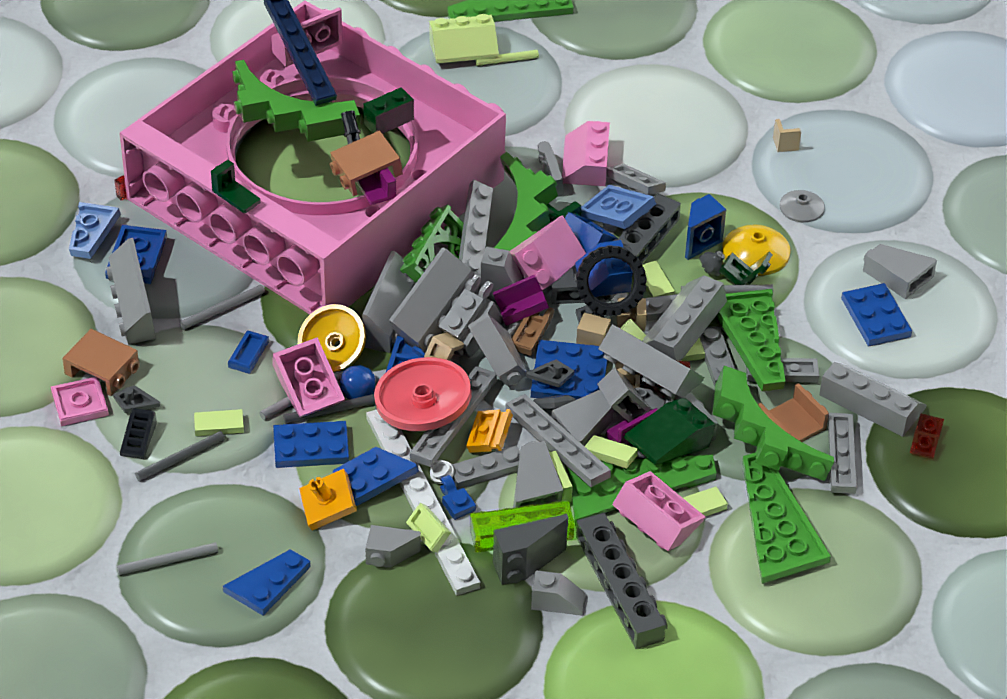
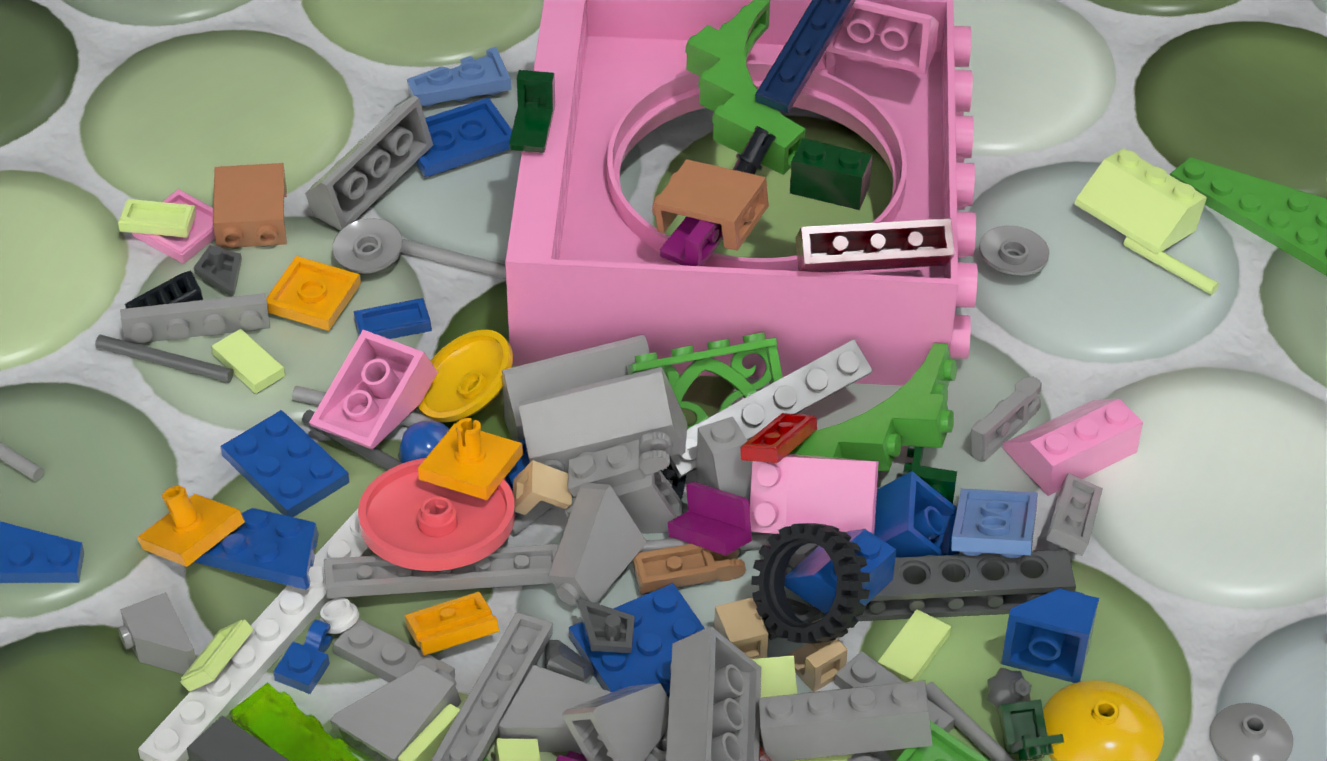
camera: 55 degrees right, 0 degrees up
(70, 404) = (157, 218): none -> yellowish green tile
(168, 426) = (195, 318): none -> light grey plate
(186, 323) = (367, 245): none -> light grey dish
(197, 371) = (312, 293): none -> light orange plate
(403, 361) = (470, 460): none -> light orange tile
(458, 124) = (875, 245): none -> brick
(511, 239) = (779, 438): none -> red tile

